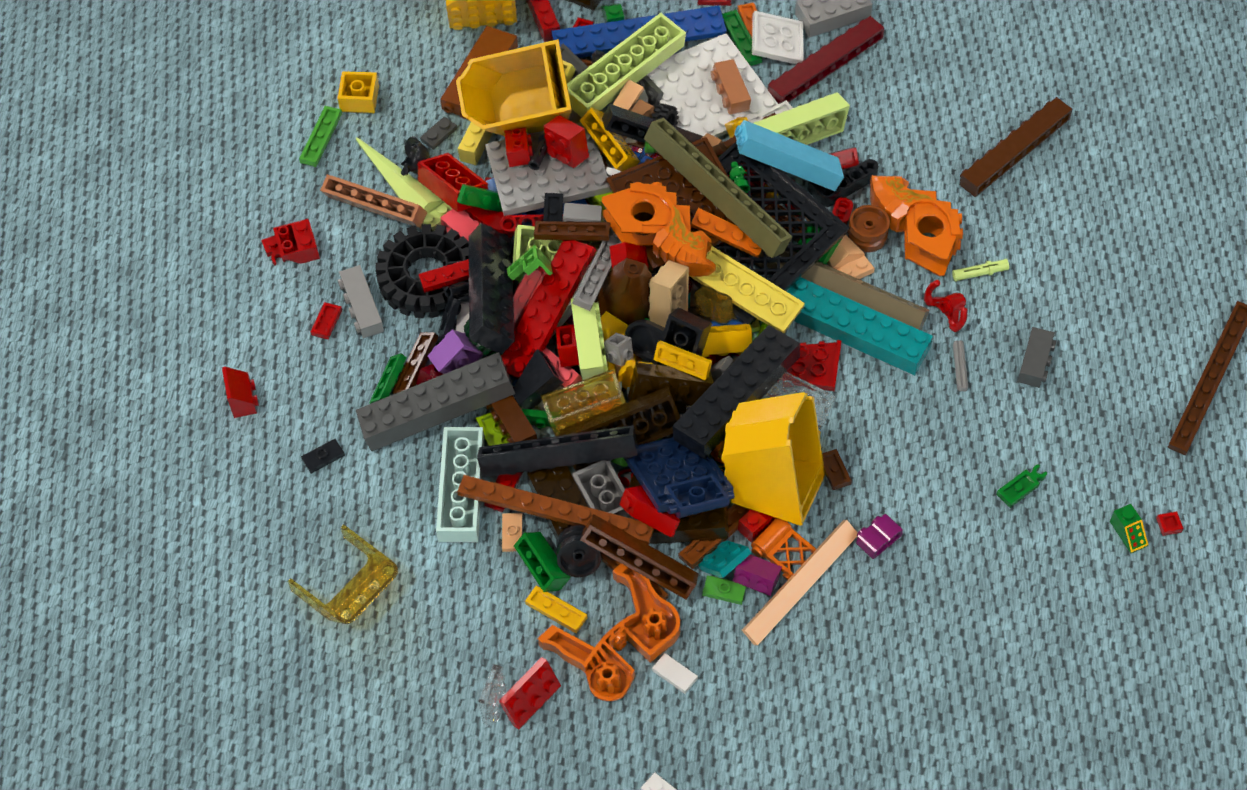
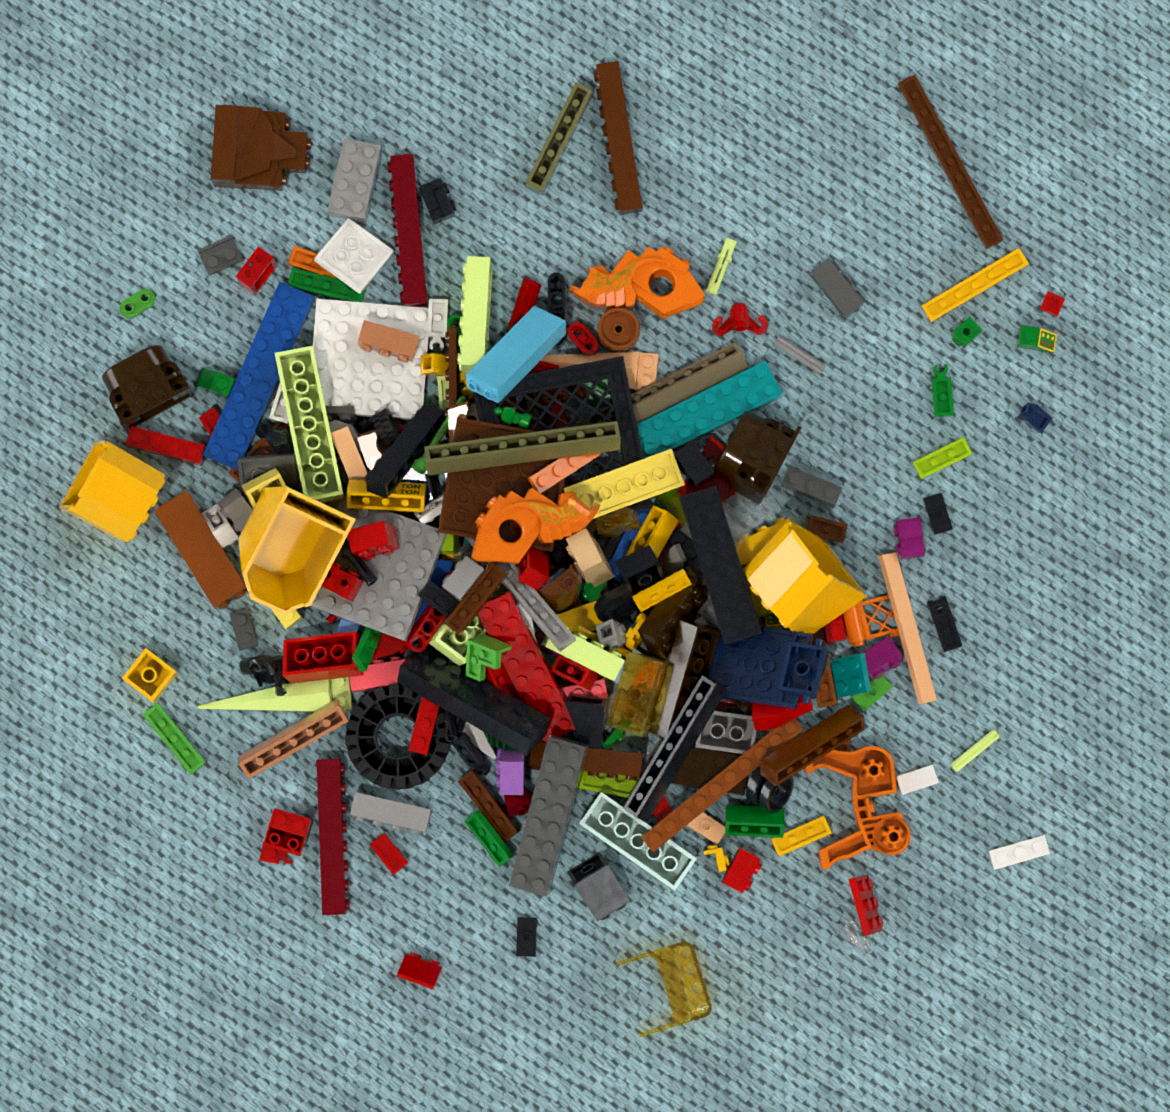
camera: 55 degrees left, 25 degrees up
(312, 274) = (332, 836): none -> dark red brick
(400, 480) = (598, 886): none -> slope
(490, 558) = (721, 859): none -> yellow bracket
(491, 580) = (741, 871): none -> red brick
(736, 704) = (975, 750): none -> yellowish green axle
(808, 330) = (694, 464): none -> black brick
(827, 610) = (944, 624): none -> black plate
(852, 371) = (755, 454): none -> dark brown brick
(860, 435) = (811, 487): none -> dark grey brick
(863, 65) = (437, 201): none -> black brick
(918, 547) = (937, 513): none -> black plate
(967, 519) = (942, 458): none -> lime plate
(979, 108) = (559, 139): none -> olive brick
(1064, 570) = (1035, 417): none -> dark blue bracket
(1086, 472) = (966, 333): none -> green brick
(1131, 455) = (974, 285): none -> yellow plate

